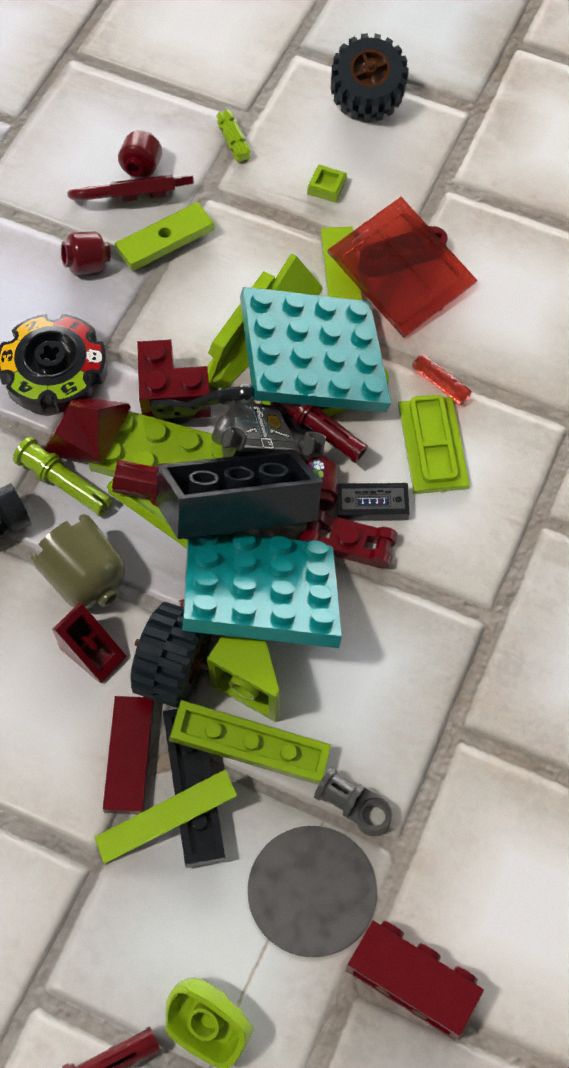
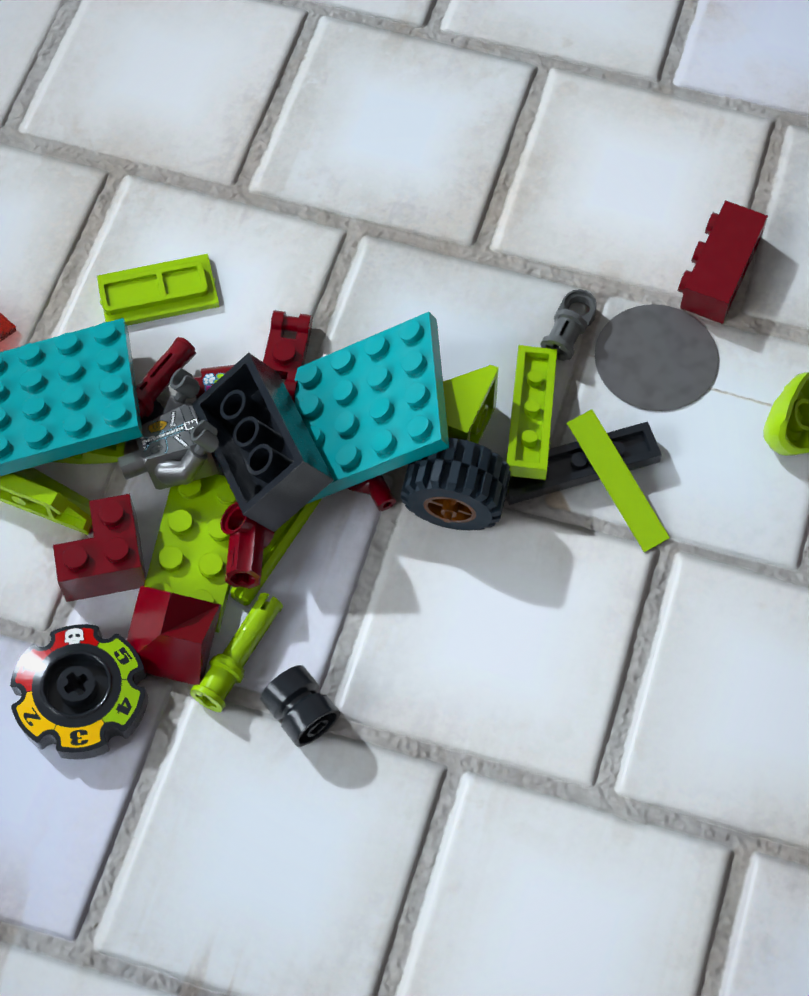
camera: 95 degrees left, 0 degrees up
(80, 563) = (356, 599): olive cylinder -> none
(88, 643) = (443, 585): dark red slope -> none
(128, 755) = (556, 530): dark red tile -> none
(182, 412) = (135, 472): black piece -> none
(373, 501) = (234, 332): tile -> none
(441, 379) = (75, 285): clear red axle -> none

